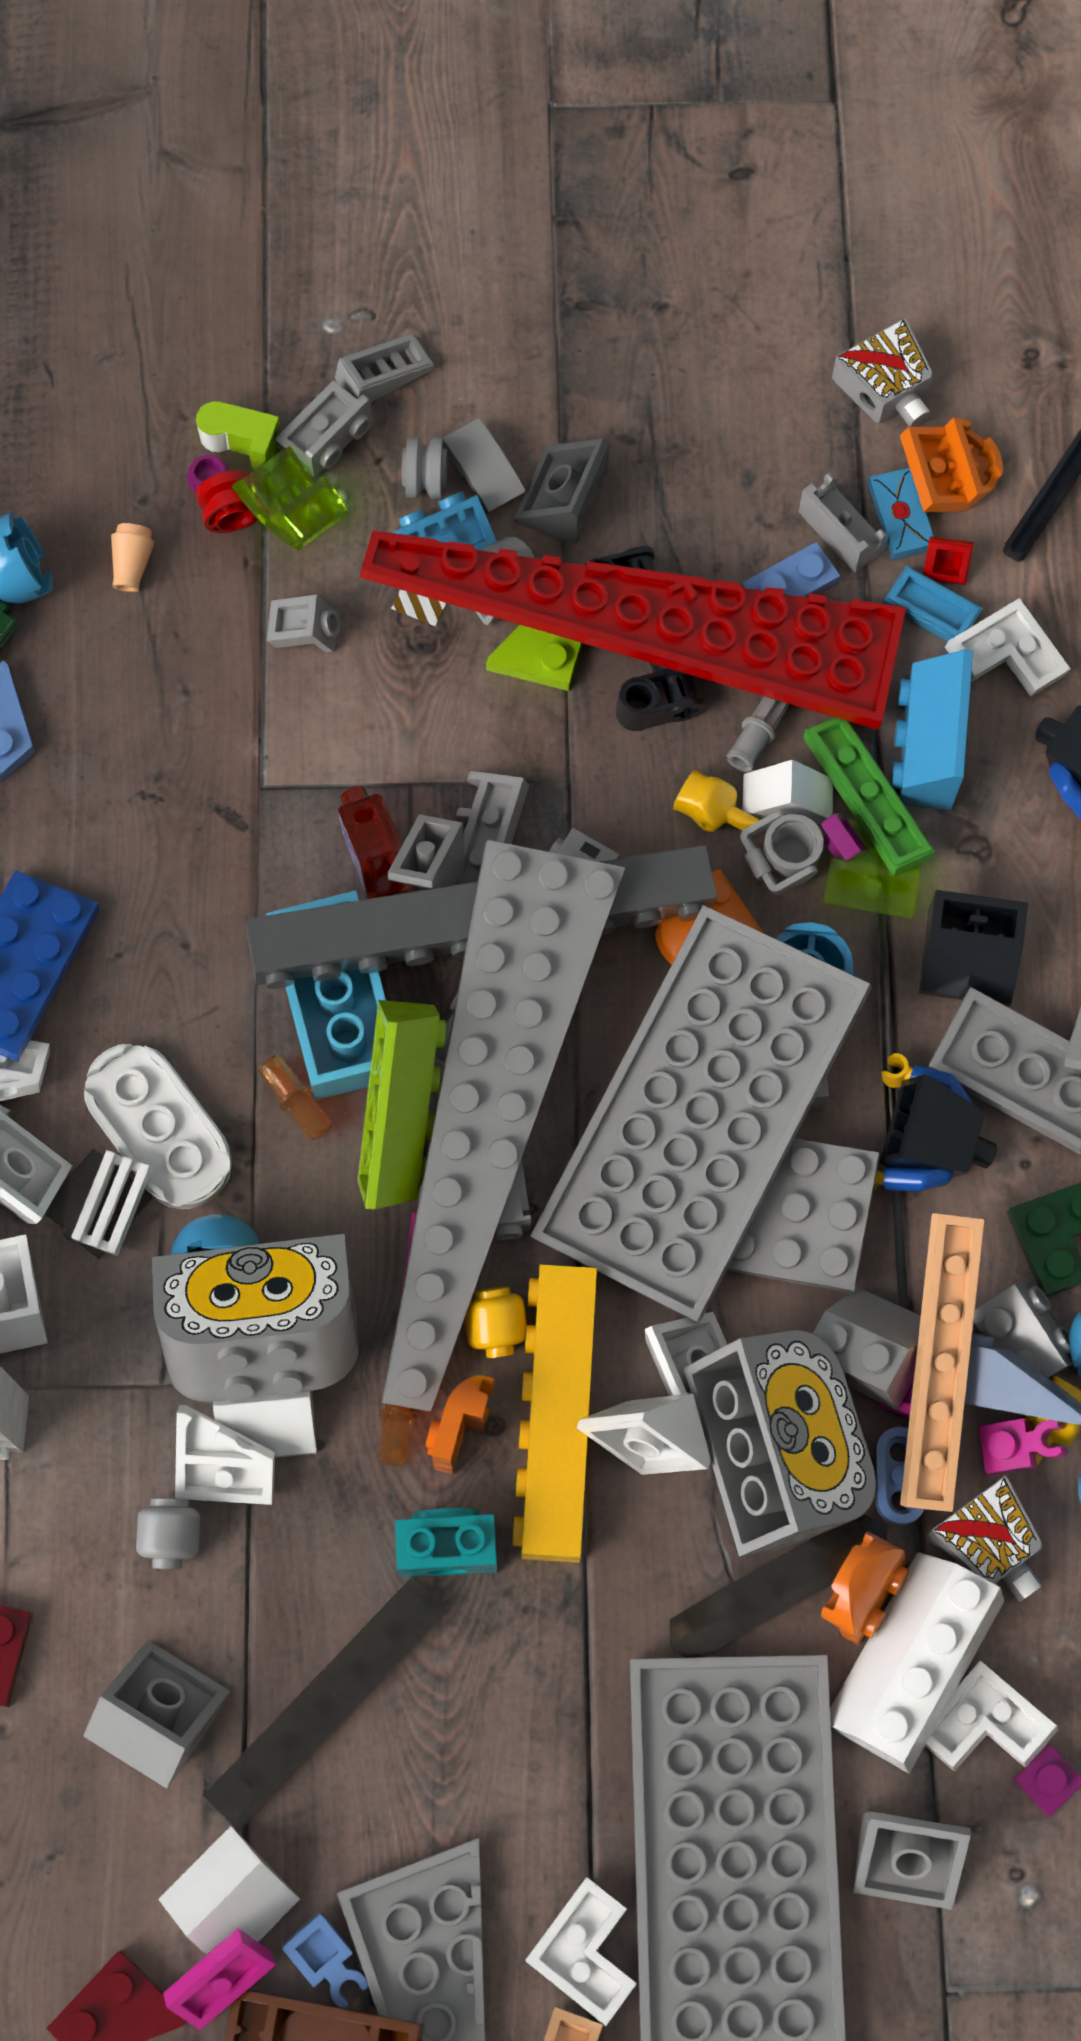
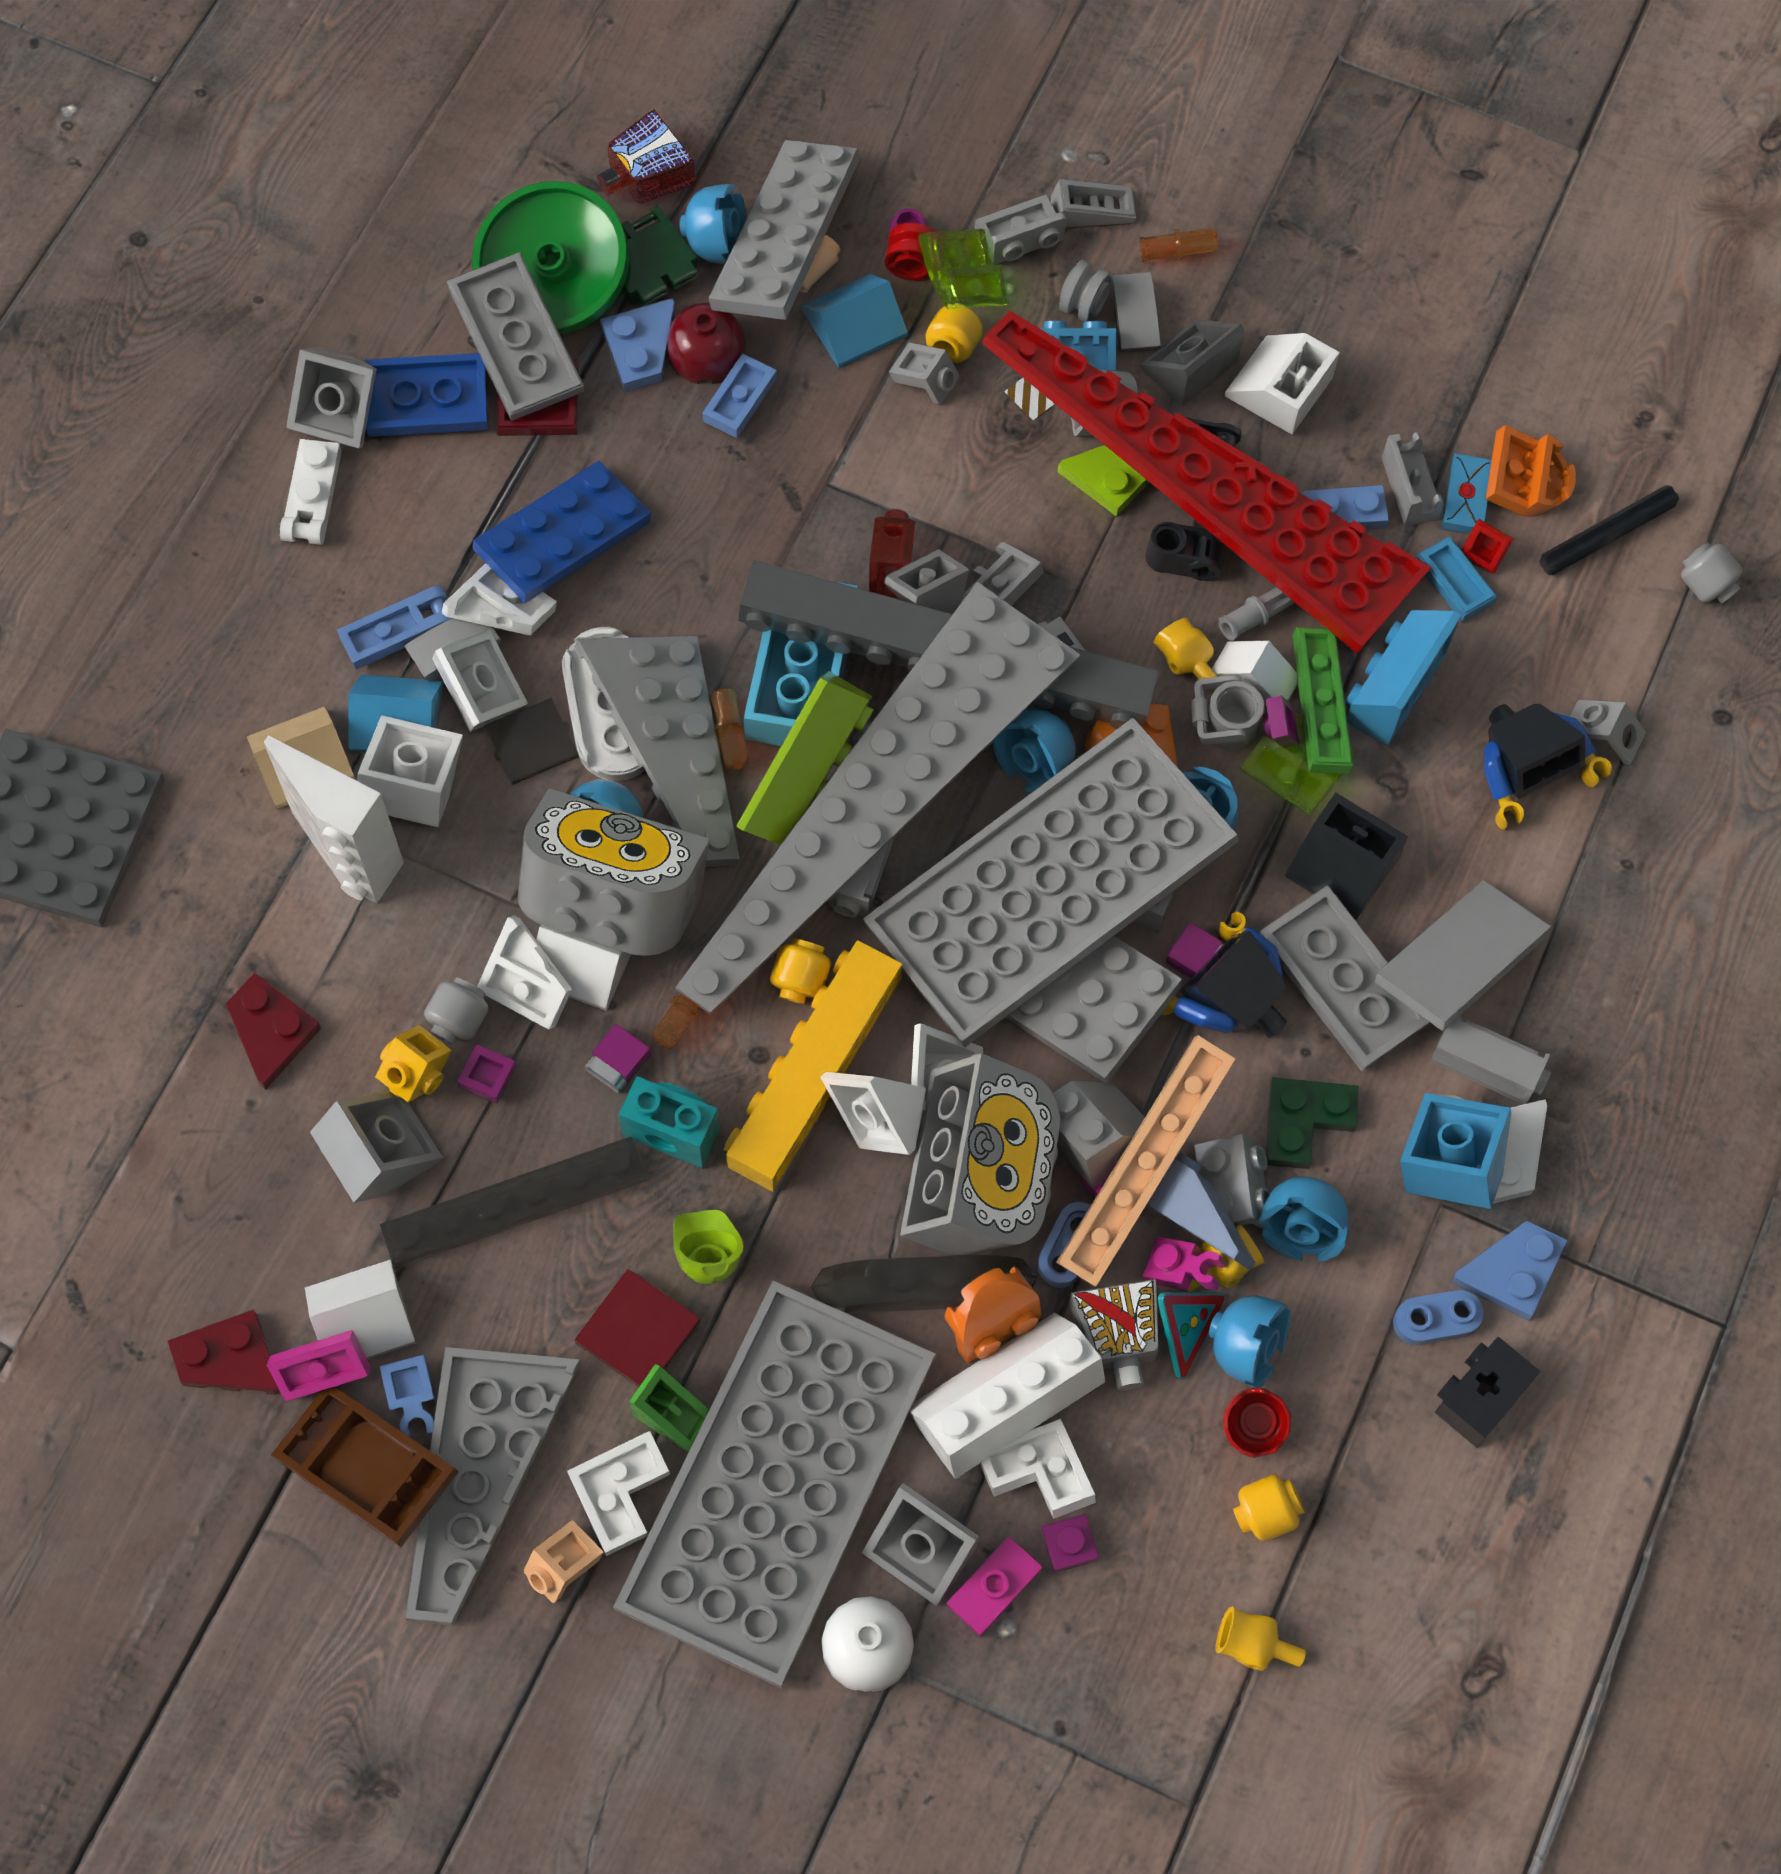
camera: 25 degrees right, 5 degrees down
(63, 694) = (704, 343): none -> dark red cylinder
(86, 537) = (784, 230): none -> light grey plate
(96, 1194) = (510, 753): white tile -> none
(126, 735) = (739, 395): none -> medium blue plate
(149, 1621) = (413, 1064): none -> yellow brick
(203, 597) = (856, 319): none -> dark azure slope
(230, 1123) = (669, 726): none -> light grey wing
(231, 1582) = (486, 1074): none -> magenta plate
(238, 430) = (948, 200): lime leg -> none
(314, 570) = (956, 332): none -> yellow head
(355, 1500) = (617, 1058): none -> magenta piece
(462, 1411) = (729, 1026): orange slope -> none
(490, 375) = (1178, 244): none -> clear orange axle
(518, 1775) = (637, 1328): none -> dark red tile
(546, 1654) = (707, 1245): none -> lime piece
(597, 1844) = (668, 1408): none -> bright green slope
(621, 978) = (1035, 747): none -> dark azure cylinder
(665, 472) = (1284, 378): none -> white slope
(870, 1113) = (1192, 950): none -> magenta piece
(887, 375) = (1510, 379): torso -> none
(906, 1984) = (867, 1644): none -> white cylinder
(998, 1862) = (994, 1586): none -> dark pink plate
(1016, 639) = (1511, 631): white plate -> none
(1053, 1503) = (1187, 1324): none -> piece

